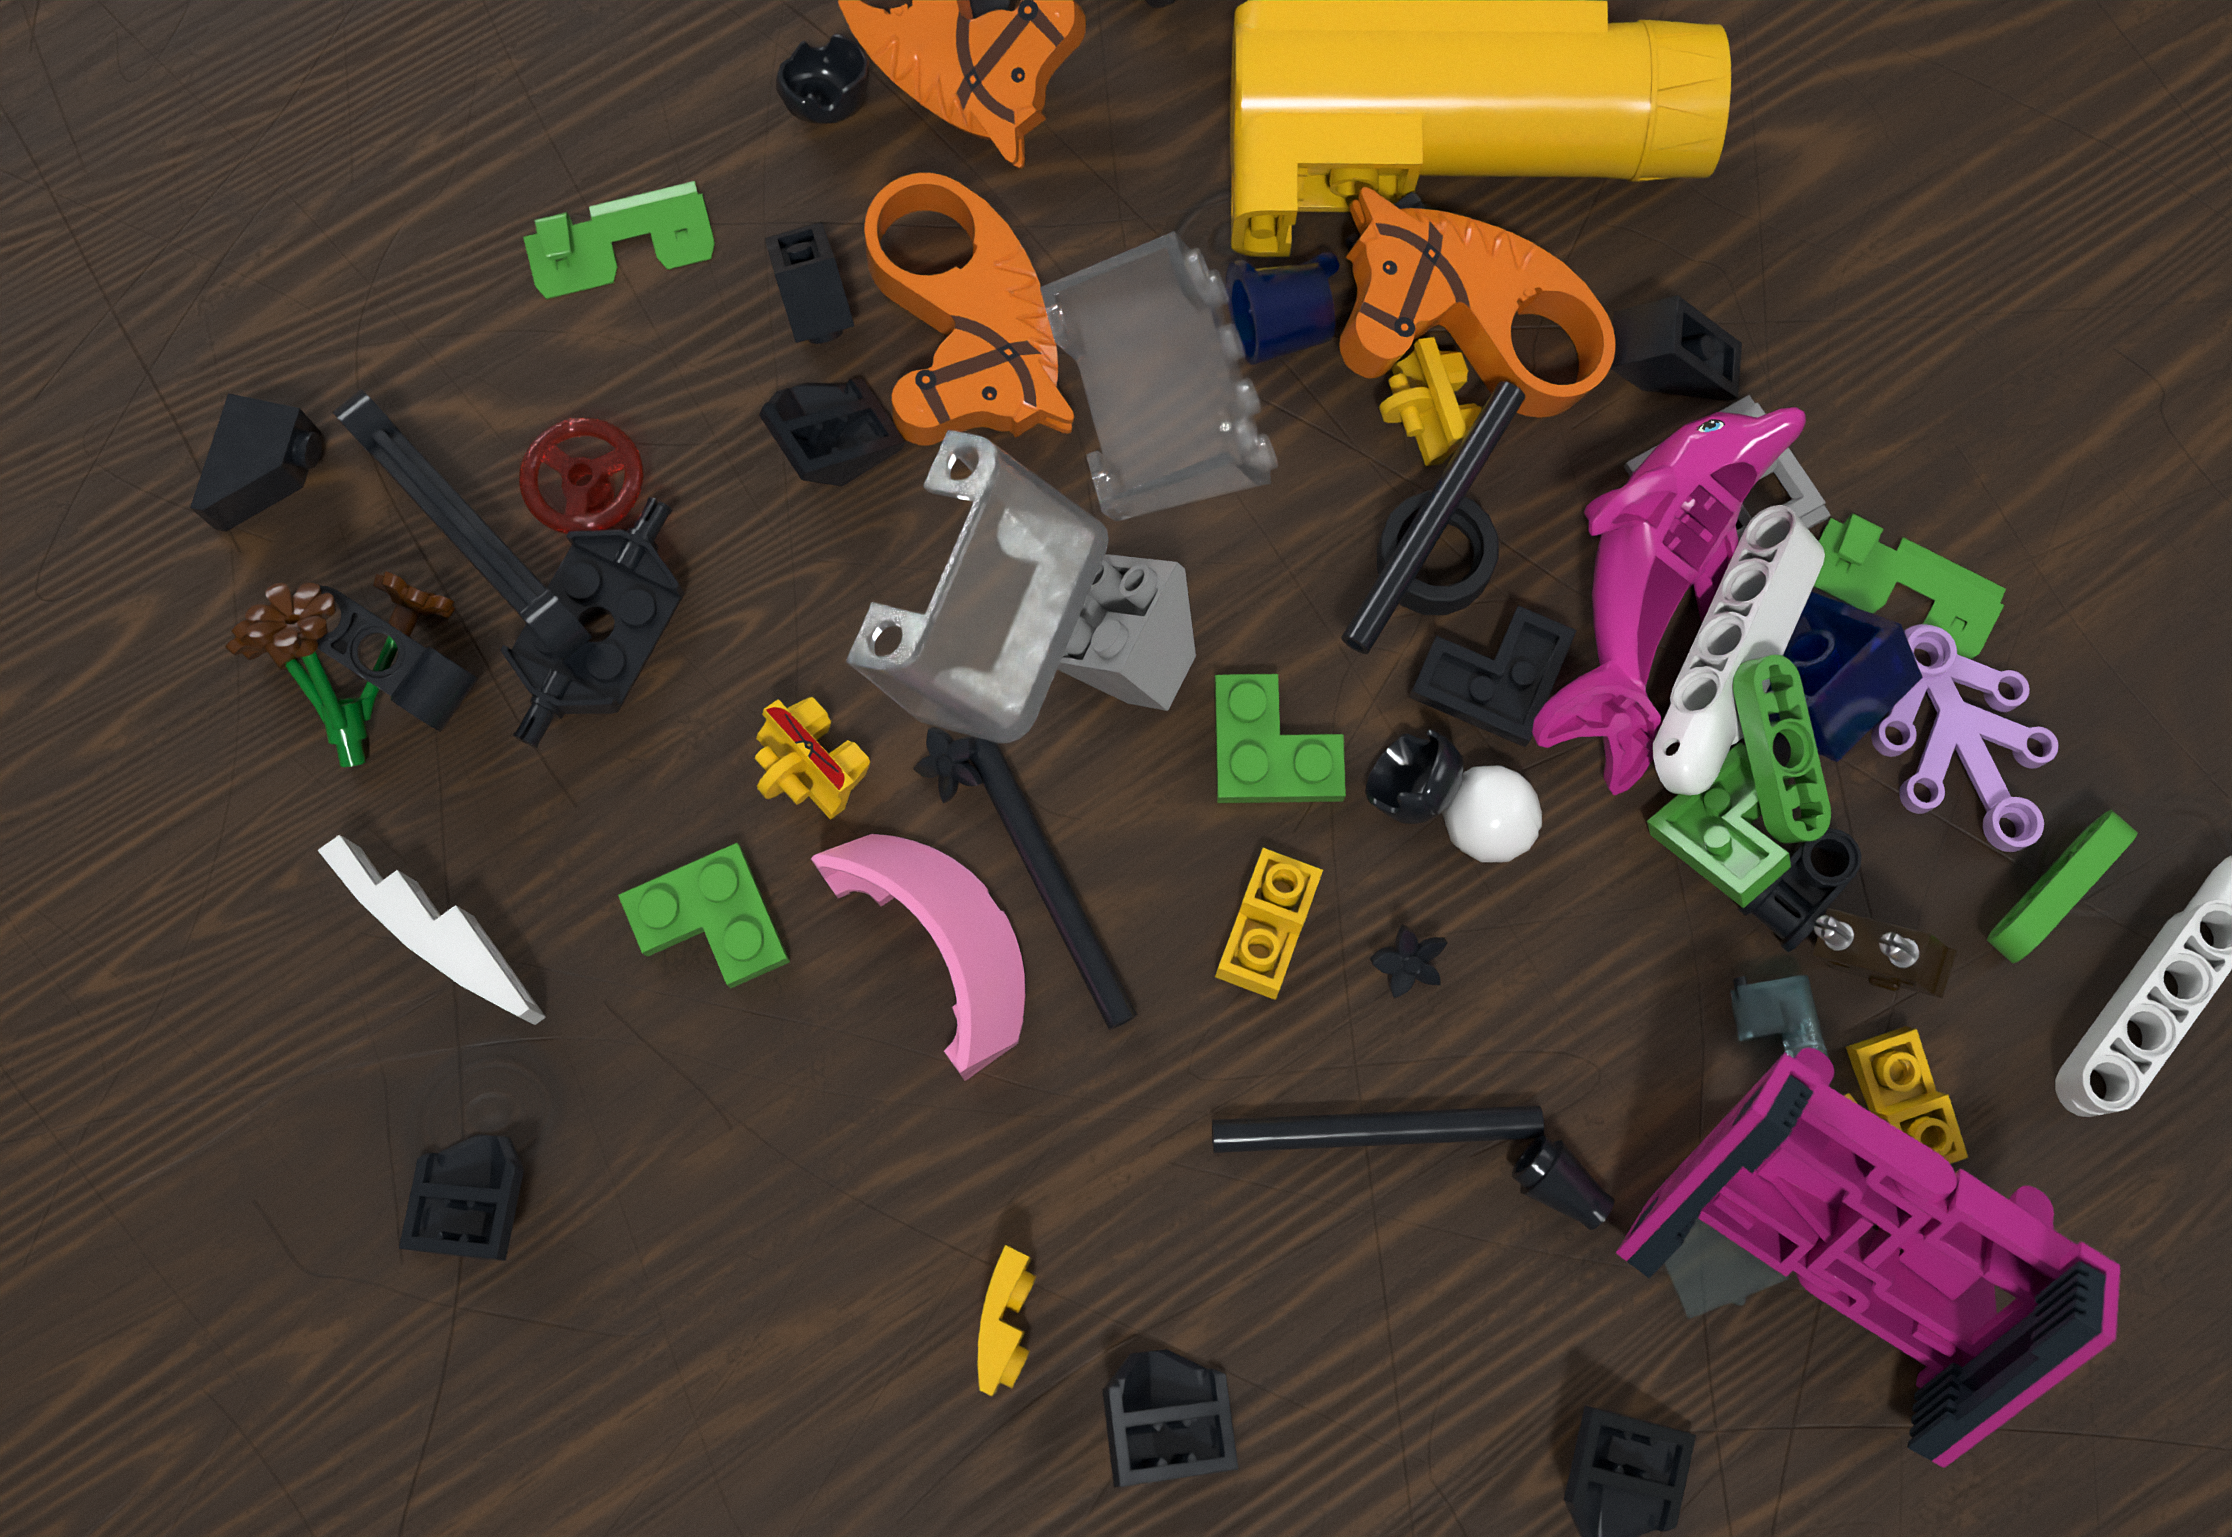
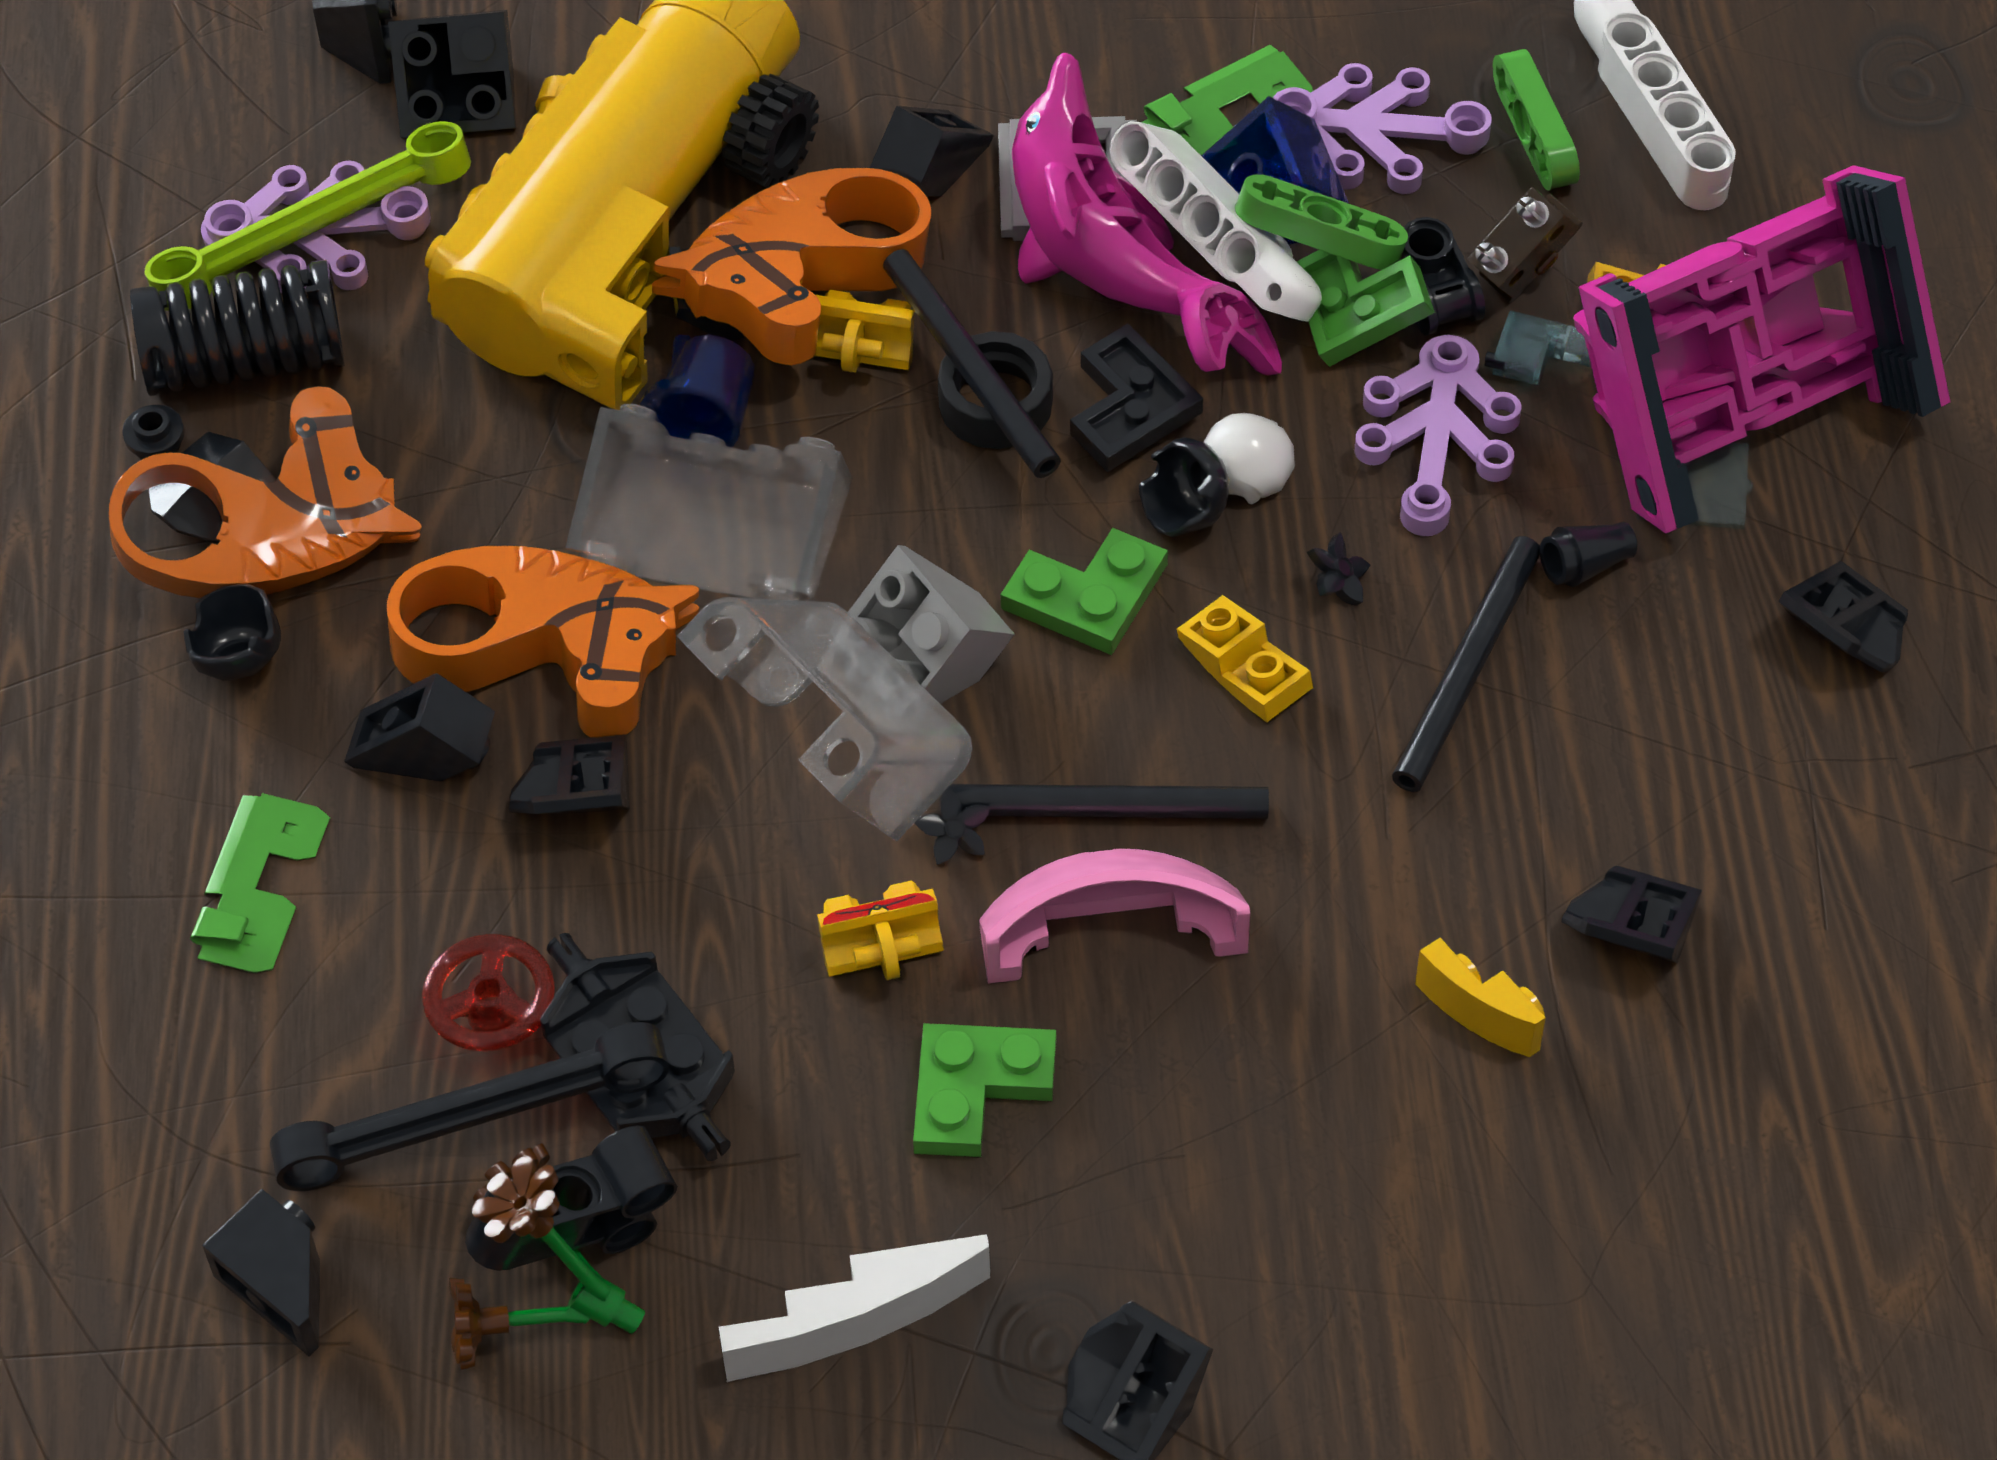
camera: 60 degrees left, 20 degrees down
(1600, 204) = (770, 131): none -> black tyre
(1637, 968) = (1438, 421): none -> lavender plant

